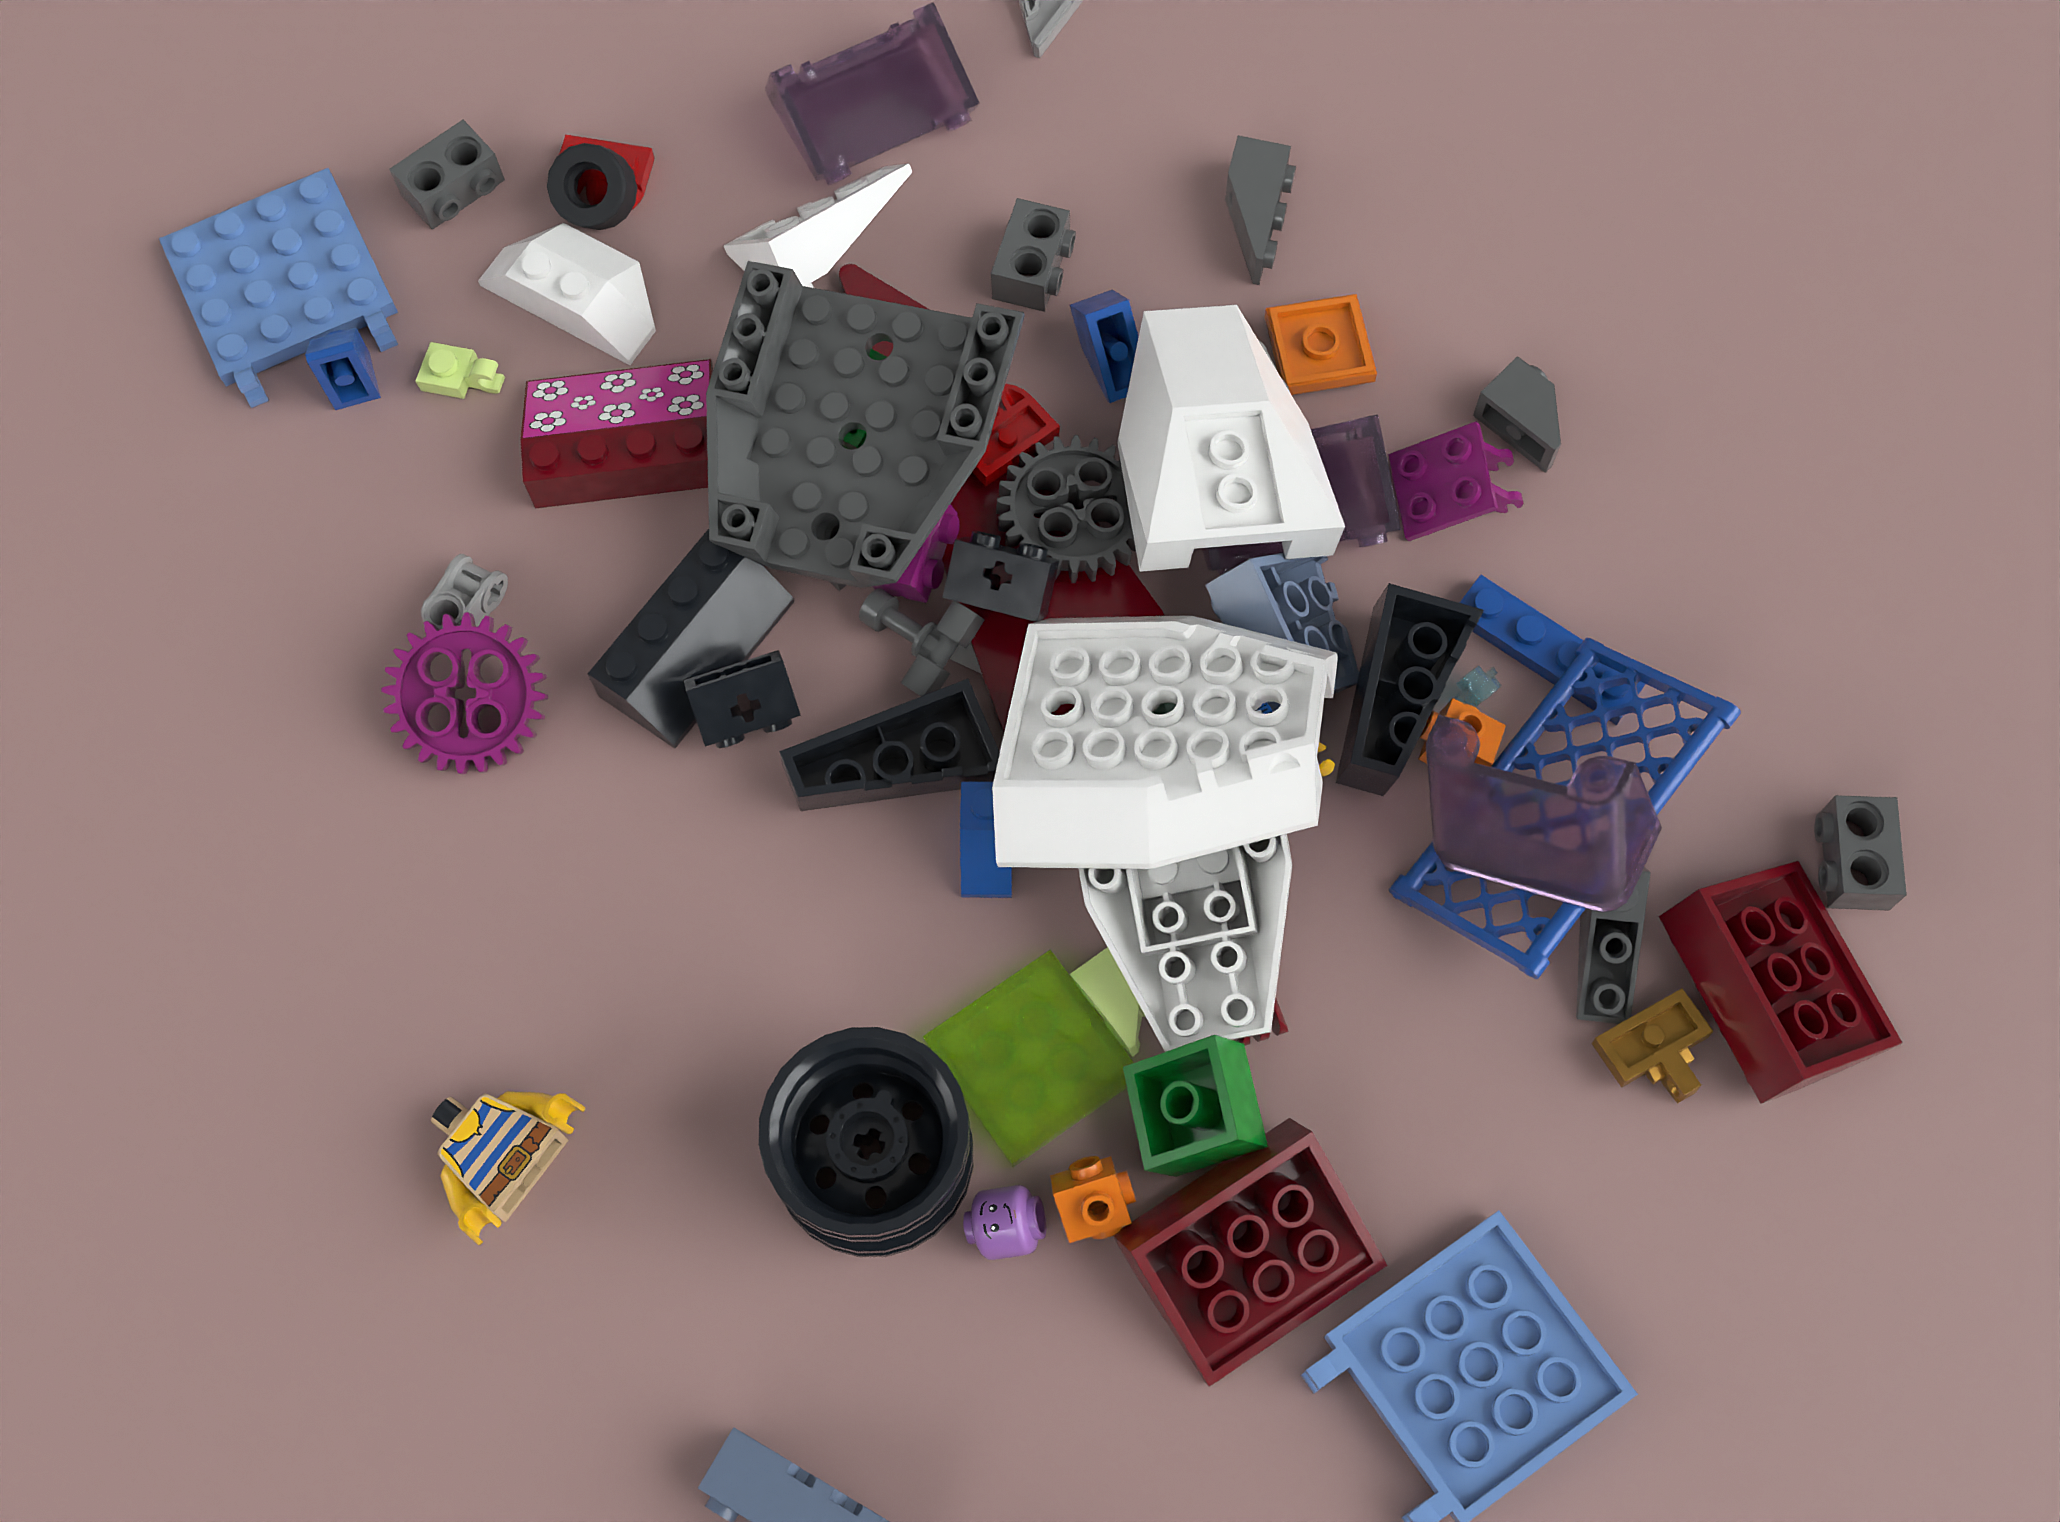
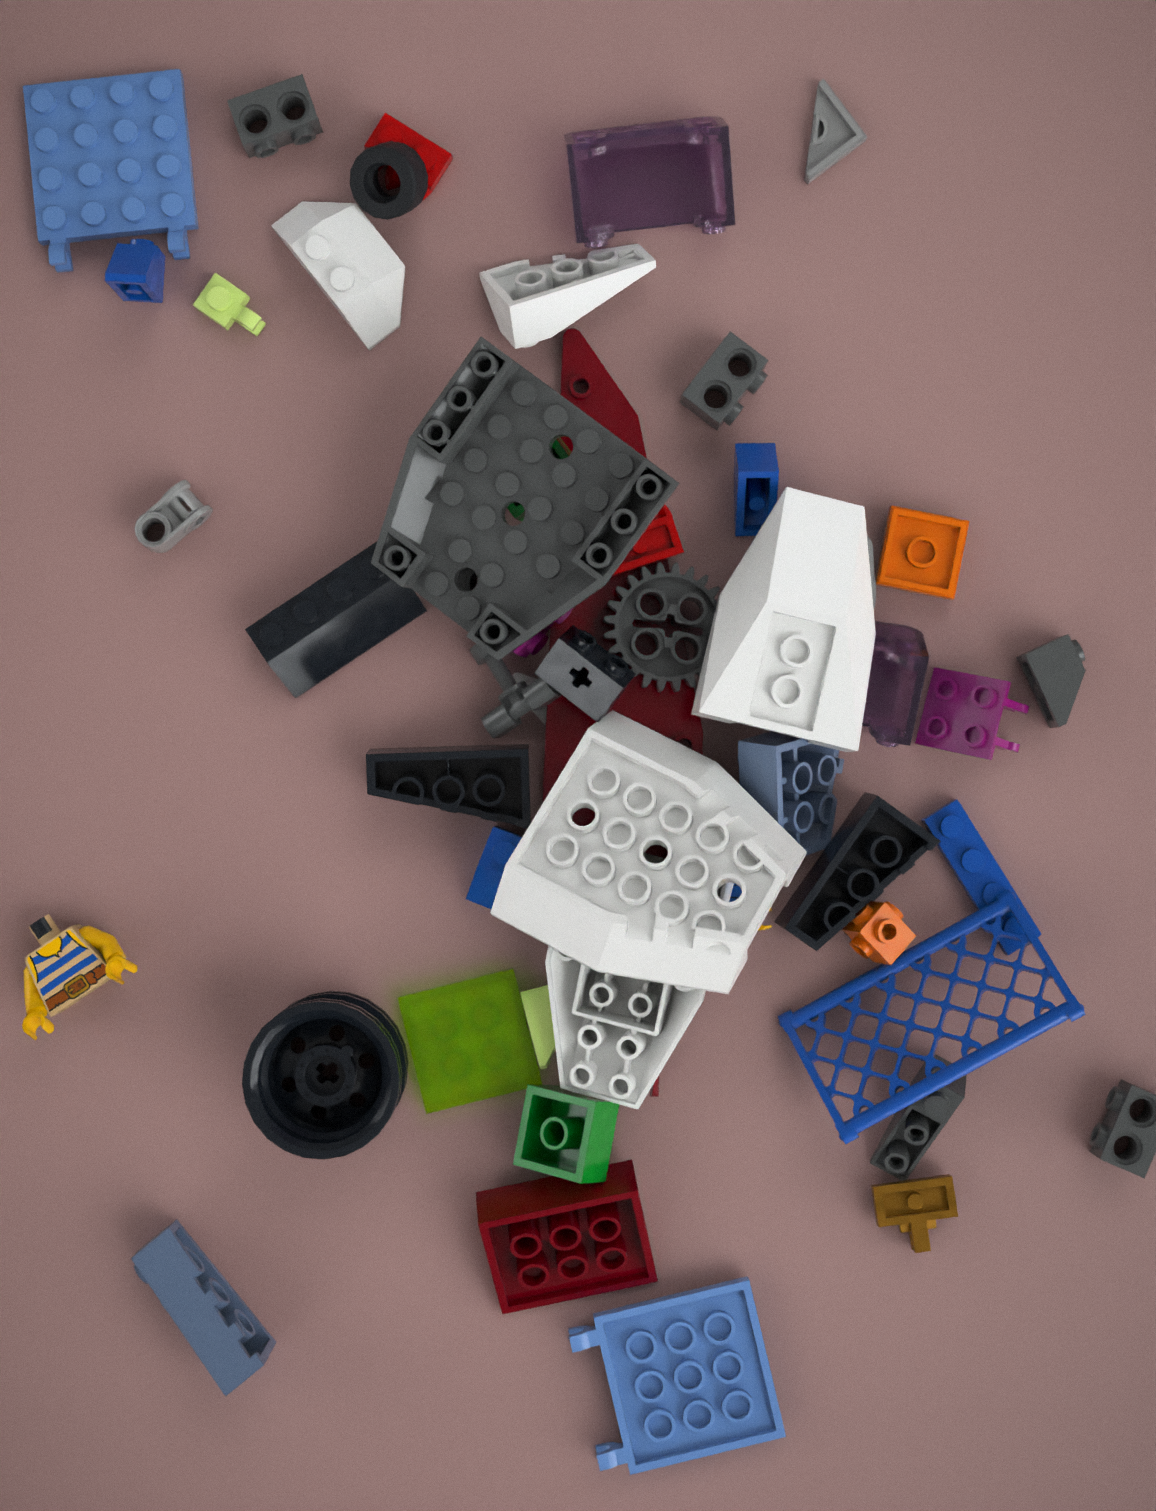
camera: 20 degrees right, 20 degrees up
(419, 692) = (116, 588): magenta gear -> none
(616, 434) = (338, 410): slope -> none
(716, 706) = (356, 688): black brick -> none
(1005, 1222) = (405, 1155): medium lavender head -> none
(1092, 1198) = (470, 1164): orange brick -> none
(1253, 197) = (926, 396): dark grey slope -> none
(1477, 686) = (912, 890): clear light blue plate -> none
(1536, 835) = (917, 1081): clear purple windscreen -> none
(1778, 979) = (1025, 1196): dark red slope -> none

